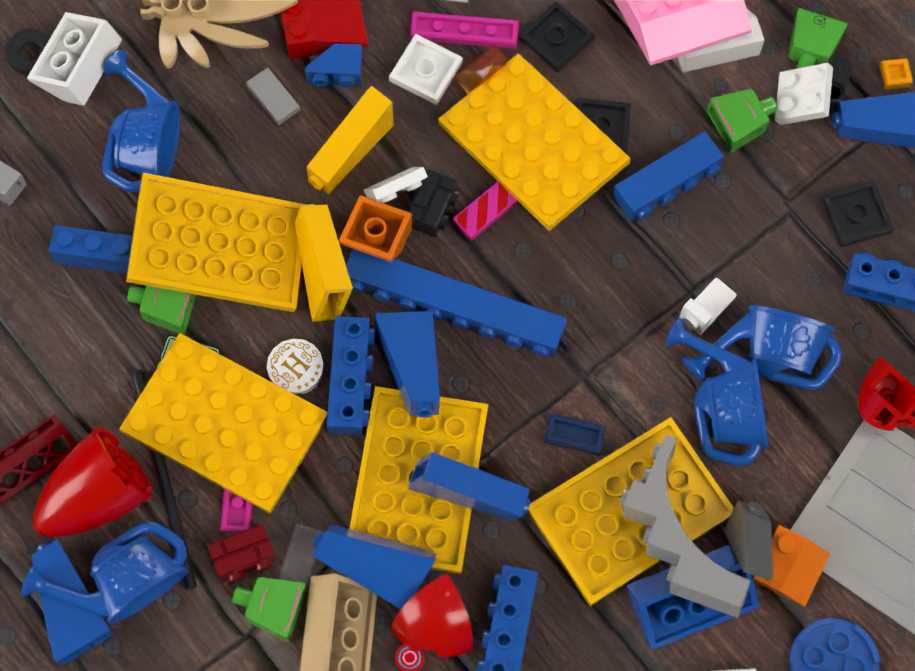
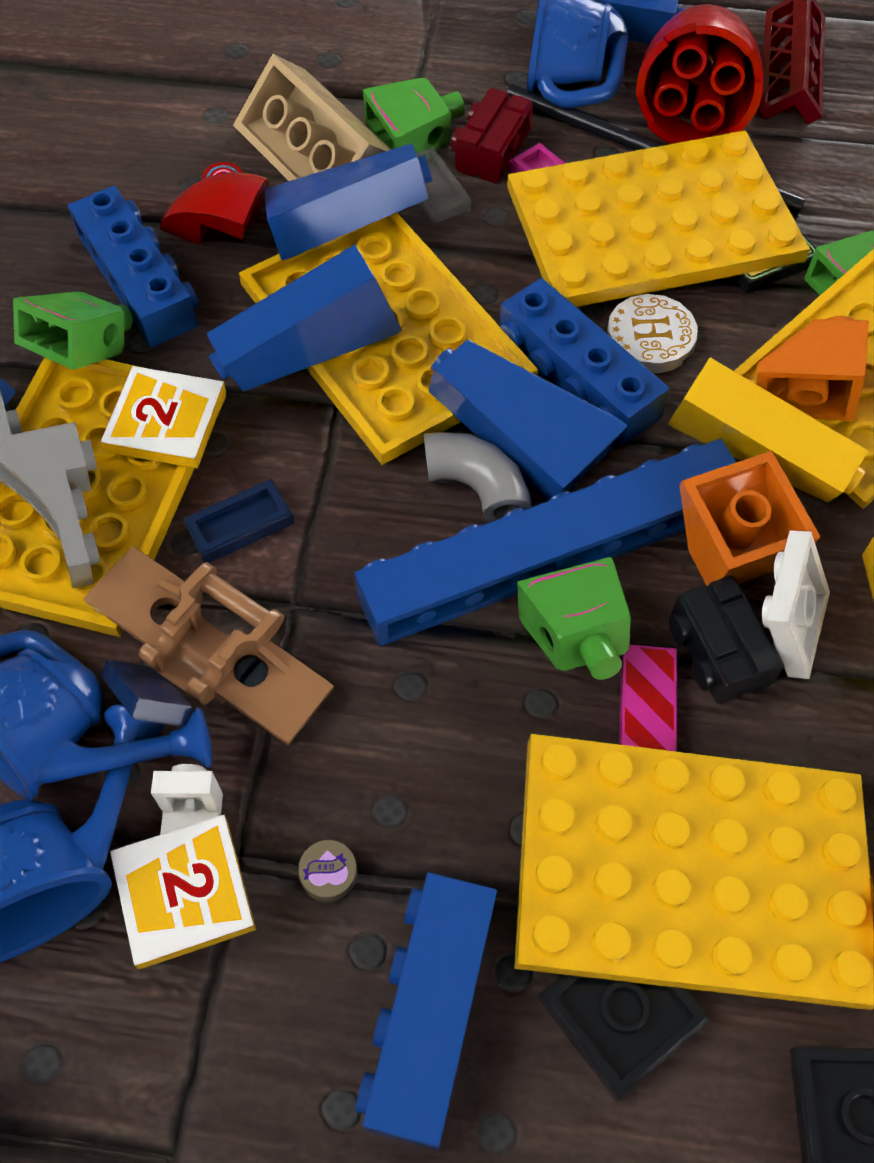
camera: 140 degrees right, 10 degrees down
(281, 253) = (820, 368): none -> orange slope
(450, 359) = (481, 467): none -> light grey cylinder
(481, 256) = (578, 617): none -> bright green torso
(570, 504) = (164, 417): none -> tile
(573, 596) = (70, 327): none -> bright green torso
(647, 373) = (200, 658): none -> medium nougat piece
(663, 254) = (328, 871): none -> dark tan tile
(681, 369) = (146, 693): none -> dark blue tile
(724, 285) = (181, 892): none -> tile

